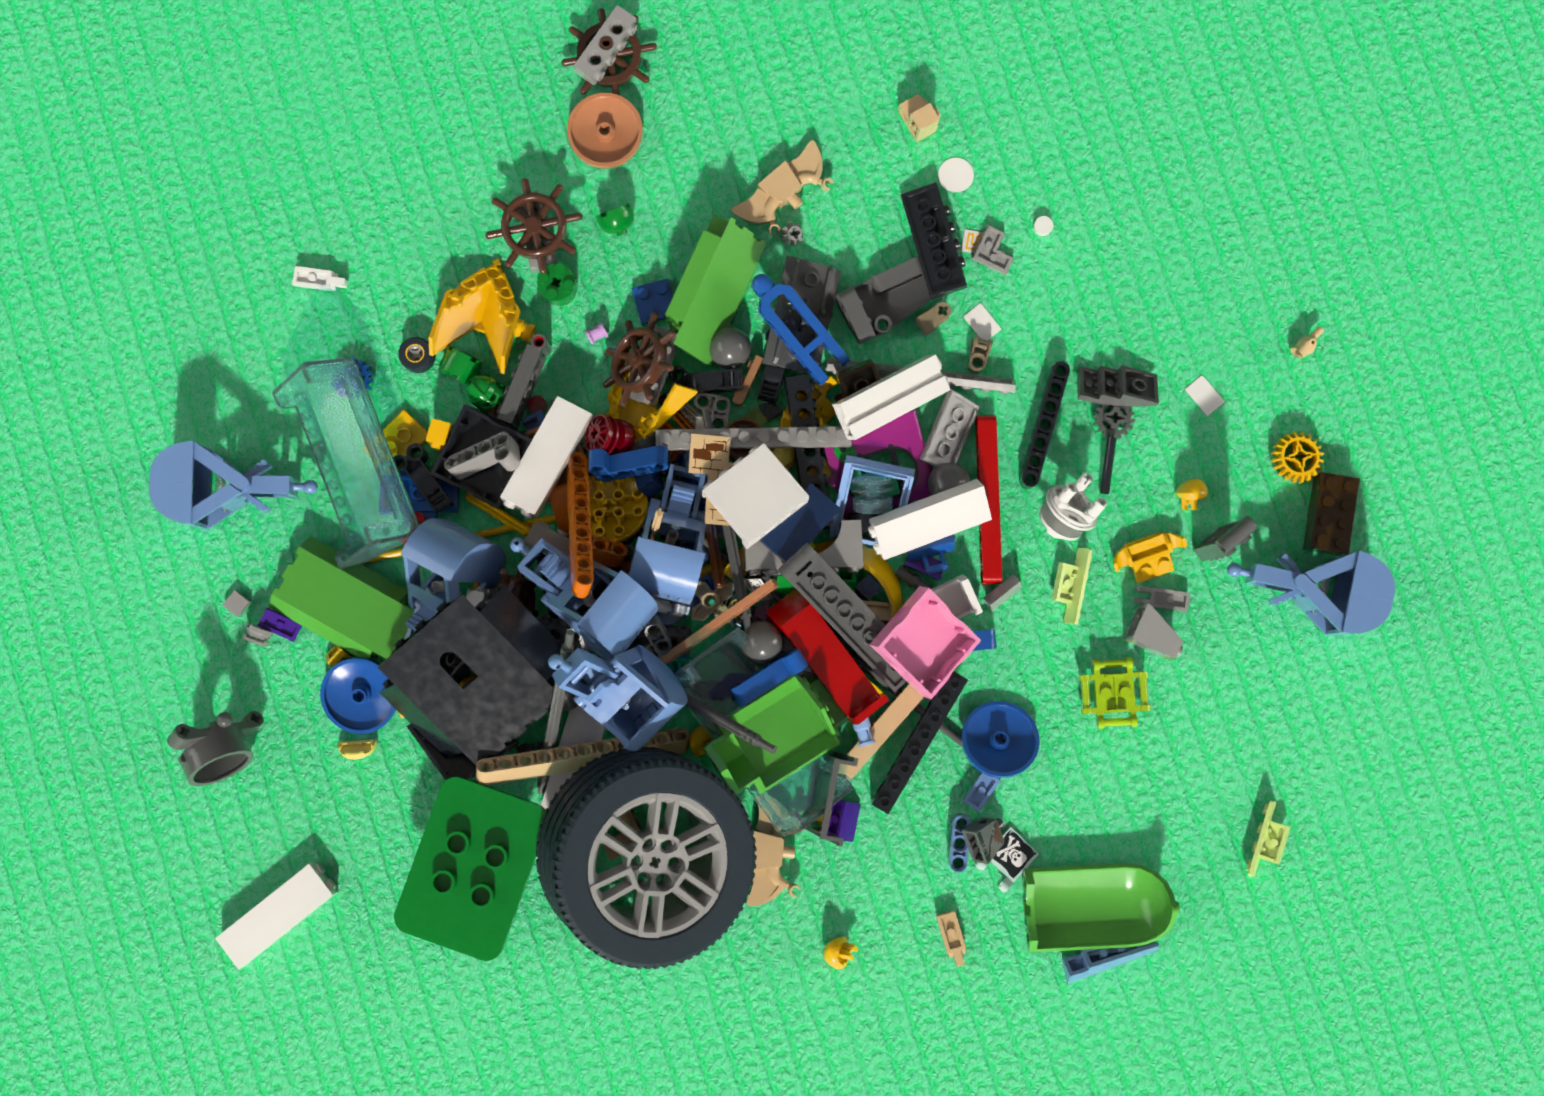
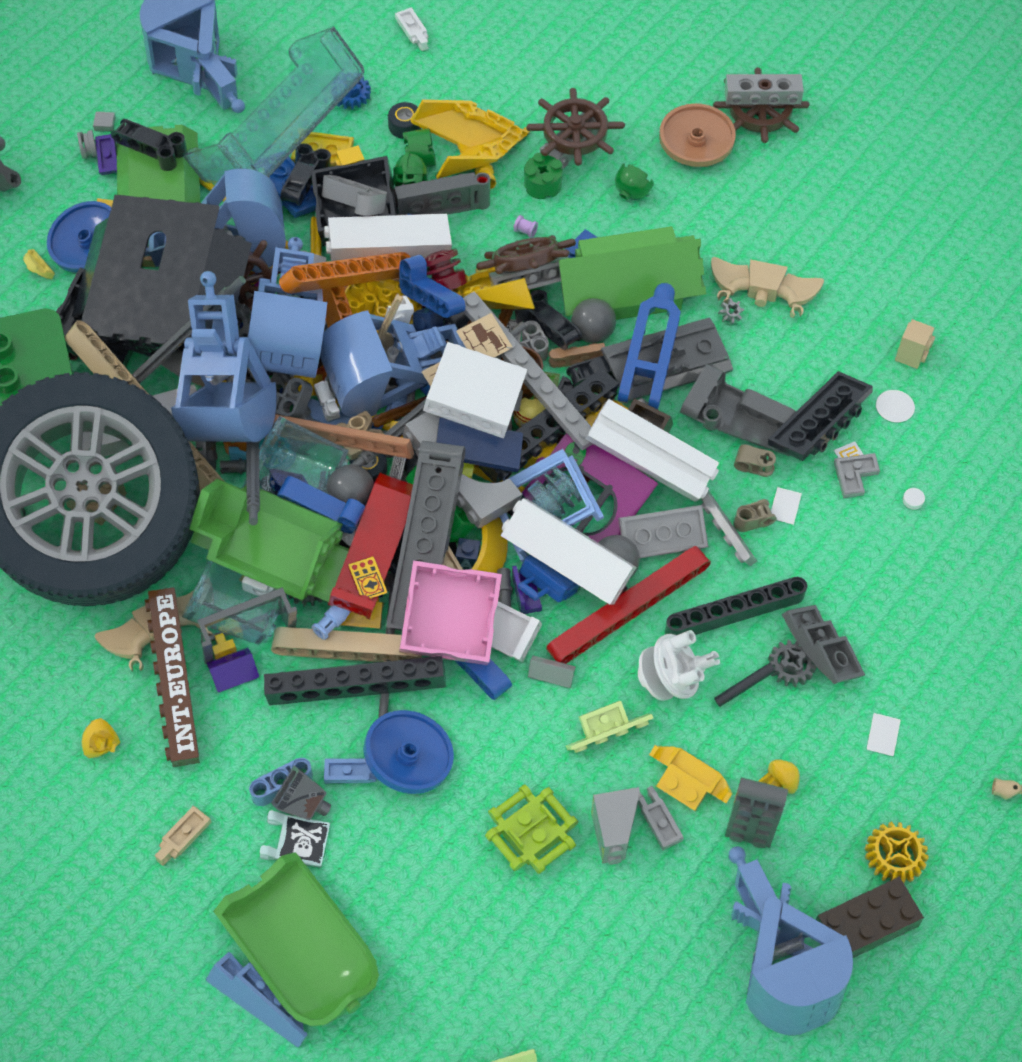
camera: 55 degrees right, 25 degrees down
(305, 587) = (151, 143): none -> black piece
(636, 504) = (404, 311): none -> white bracket
(828, 871) = (173, 677): none -> reddish brown brick
(854, 683) = (368, 578): none -> yellow sticker

